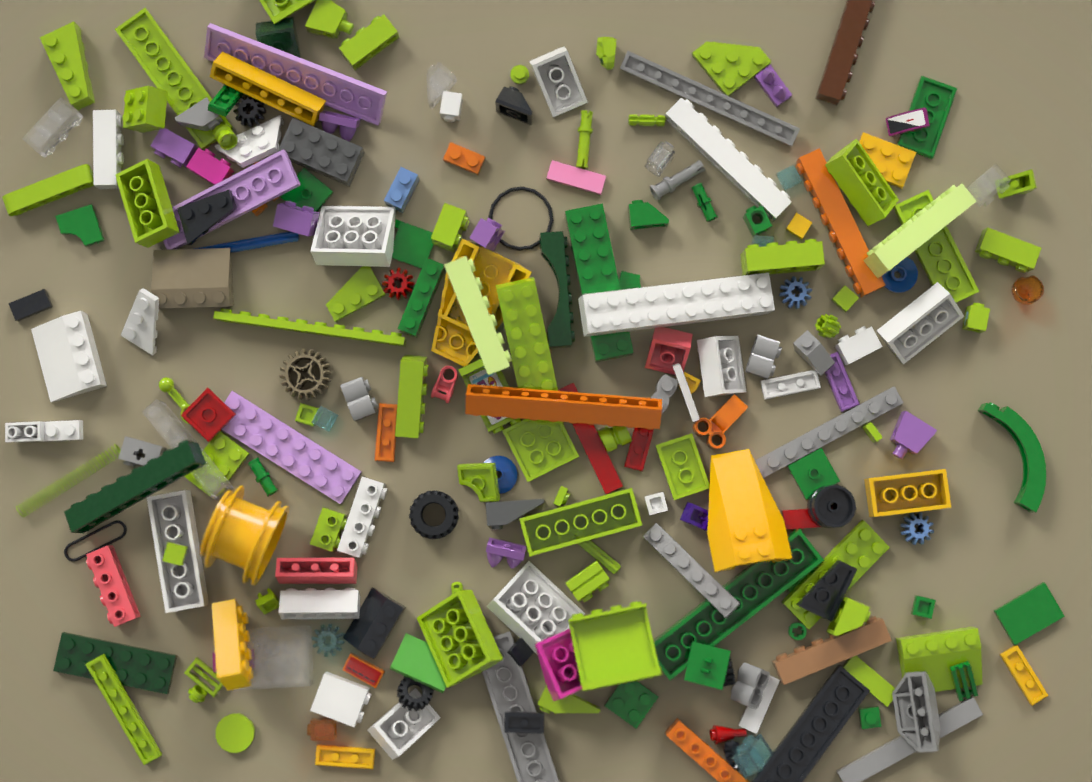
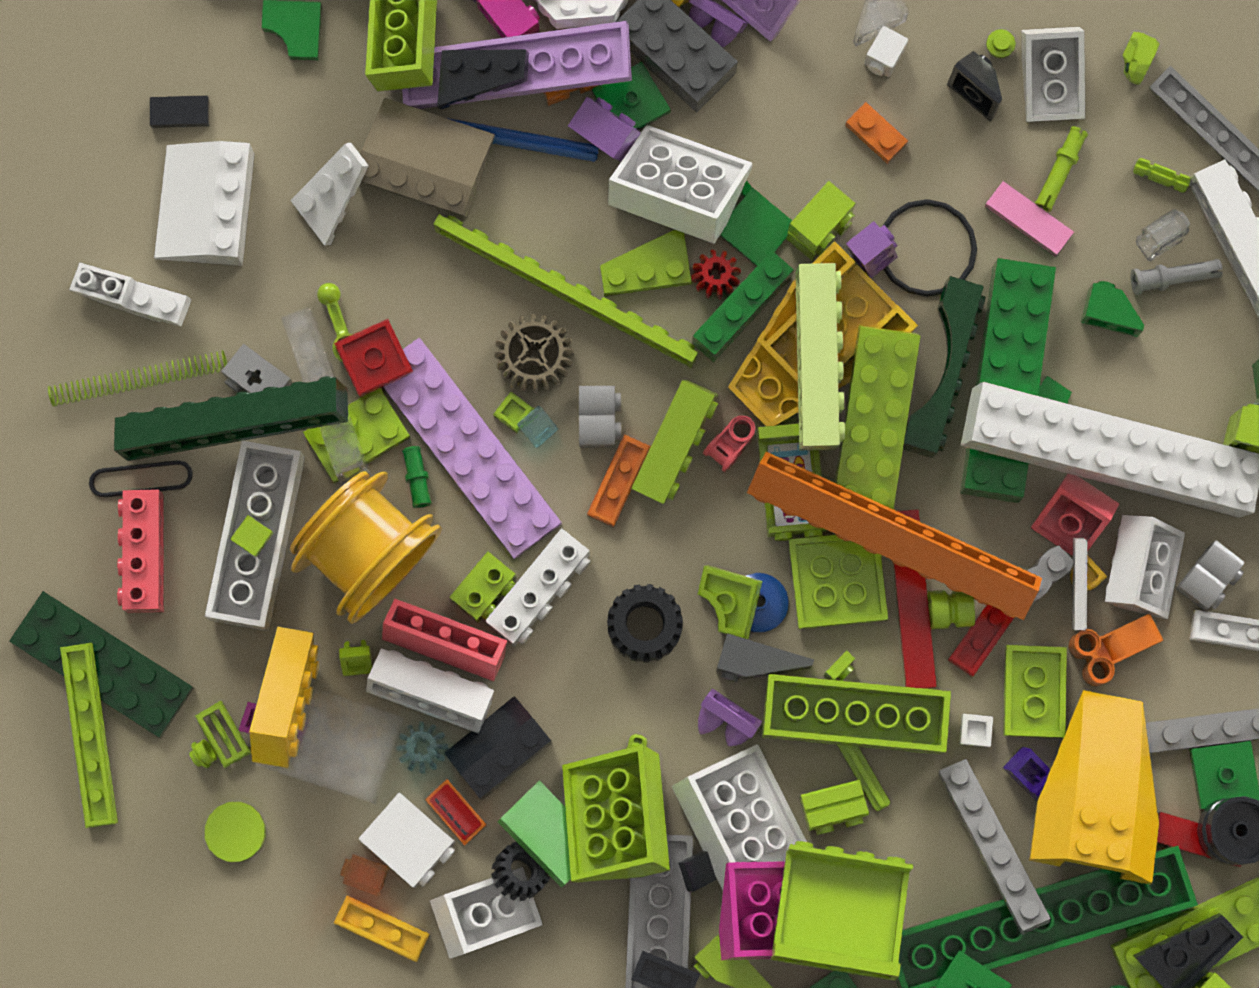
camera: 20 degrees right, 5 degrees down
(401, 189) = (771, 142): medium blue brick -> none
(704, 202) = (1204, 322): green pin -> none

